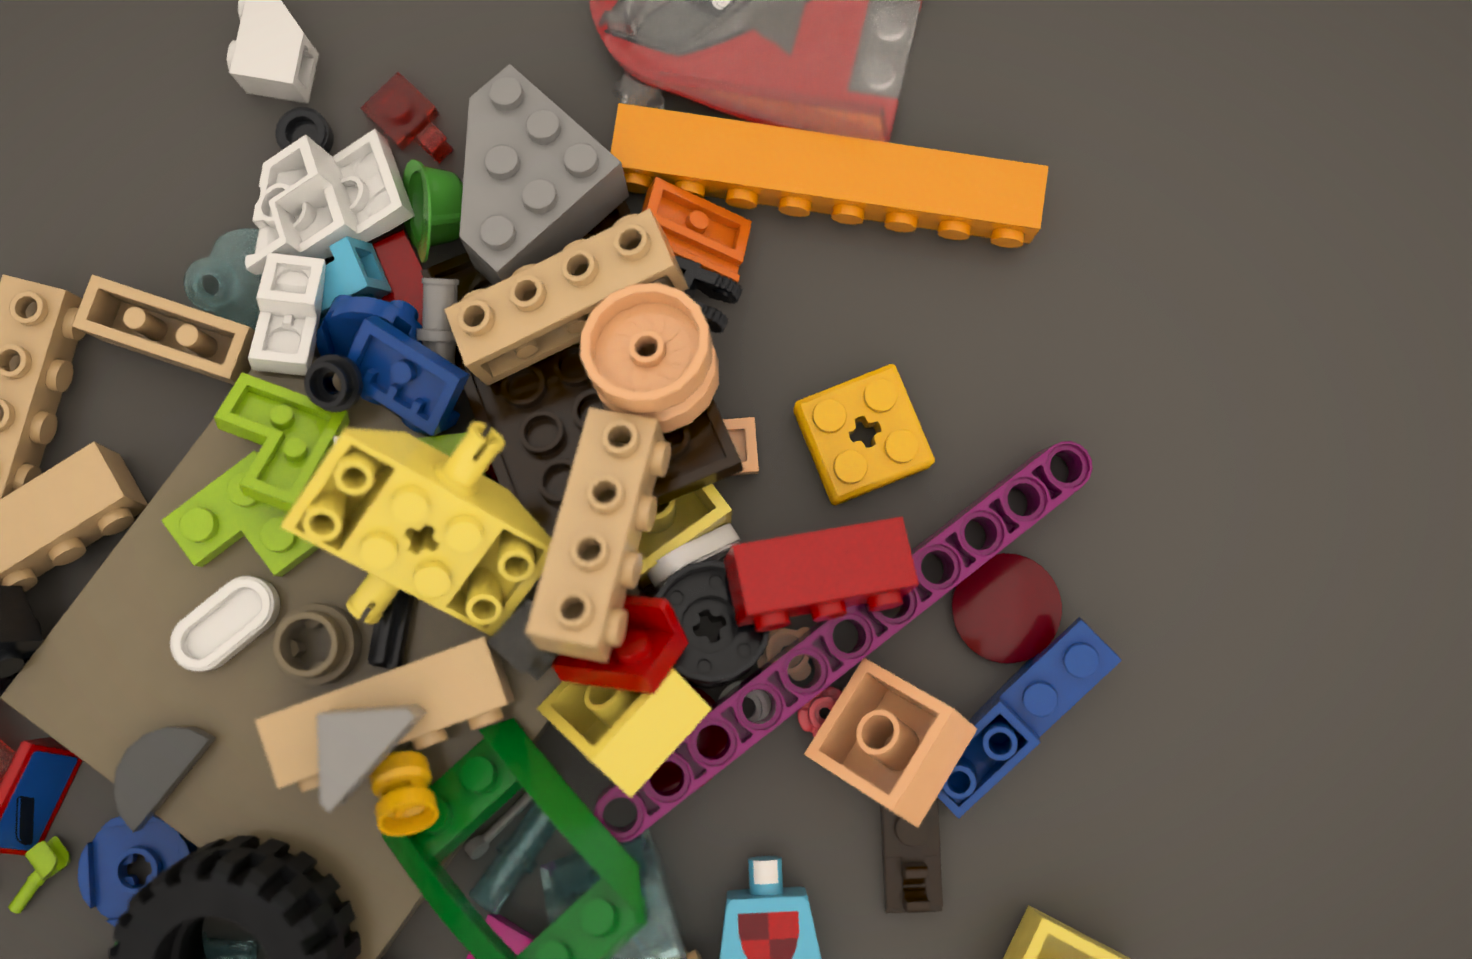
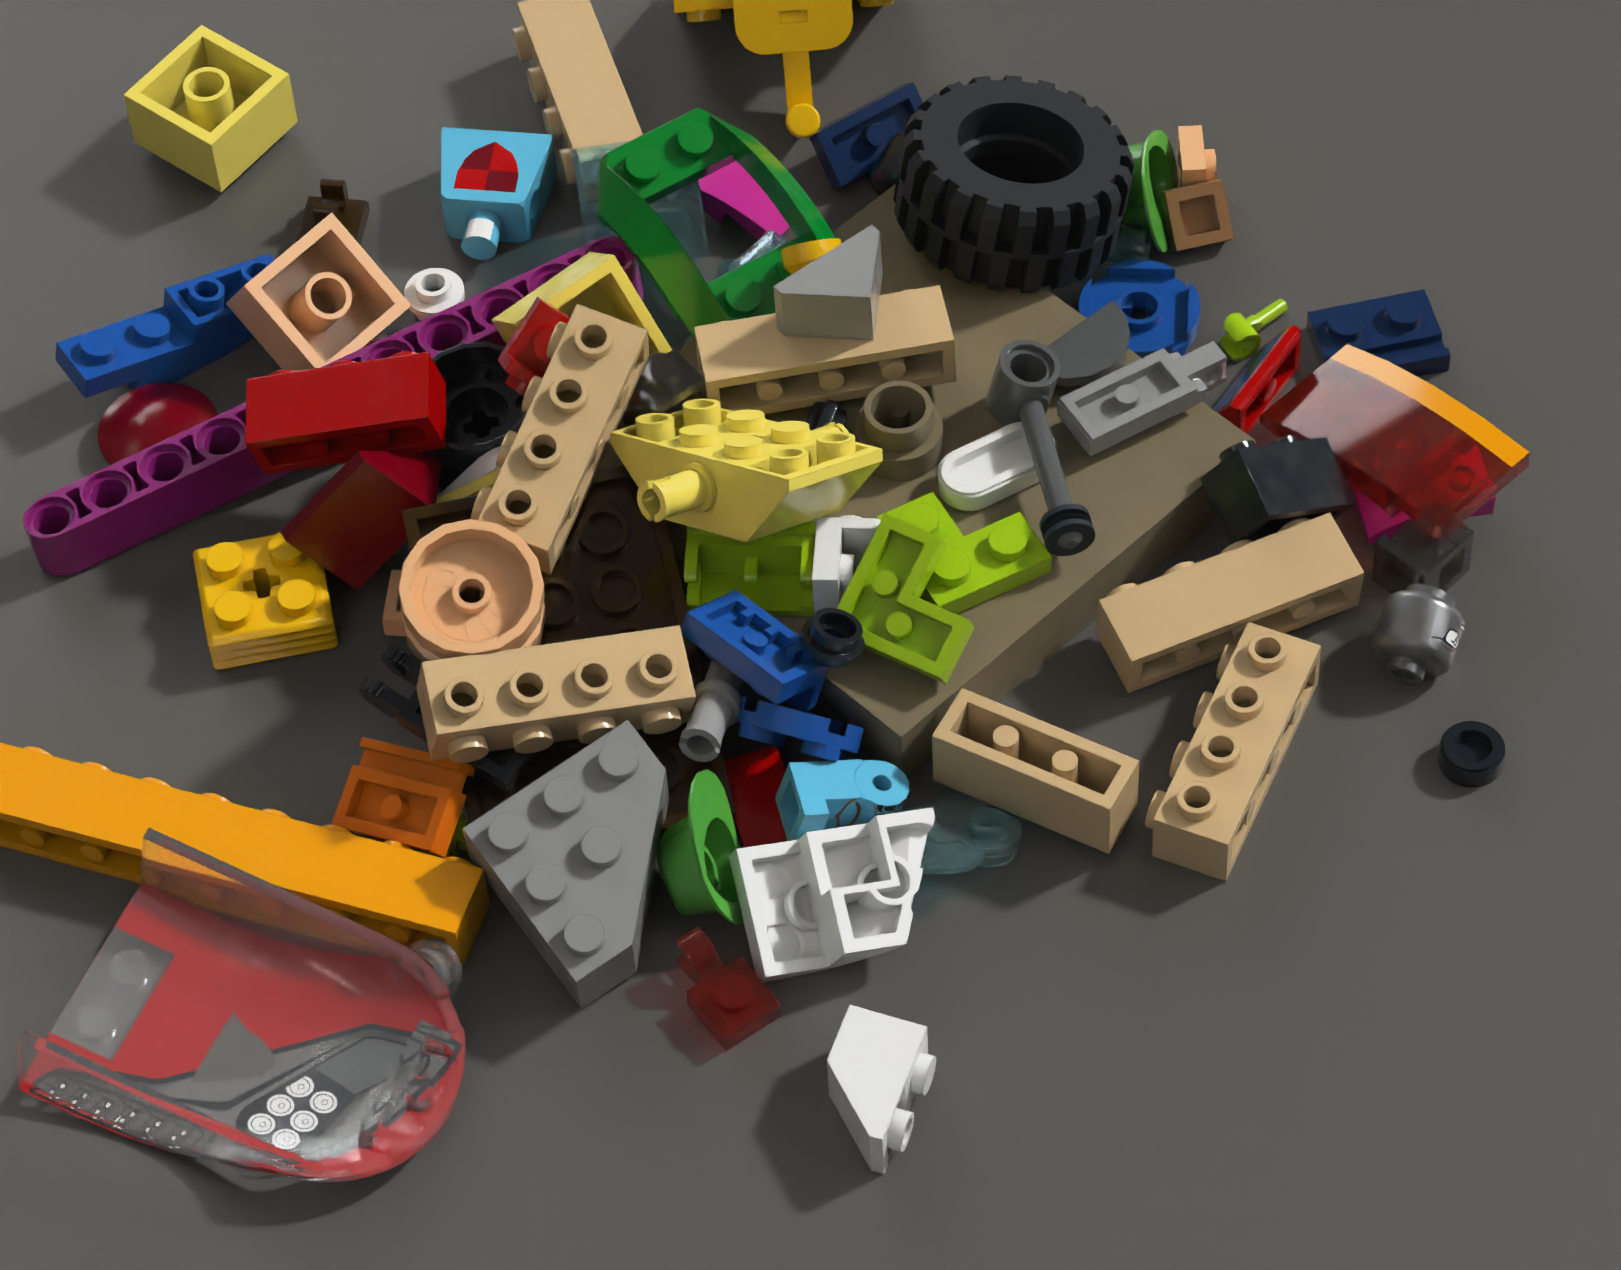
camera: 165 degrees left, 30 degrees down
(96, 715) = (1140, 395): none -> light grey hinge
(178, 701) = (1022, 393): none -> dark grey piece
(289, 314) = (885, 742): white slope -> none
(300, 122) = (860, 985): black tile -> none
(780, 495) = (358, 514): none -> dark red slope
(796, 785) = (433, 291): none -> white plate

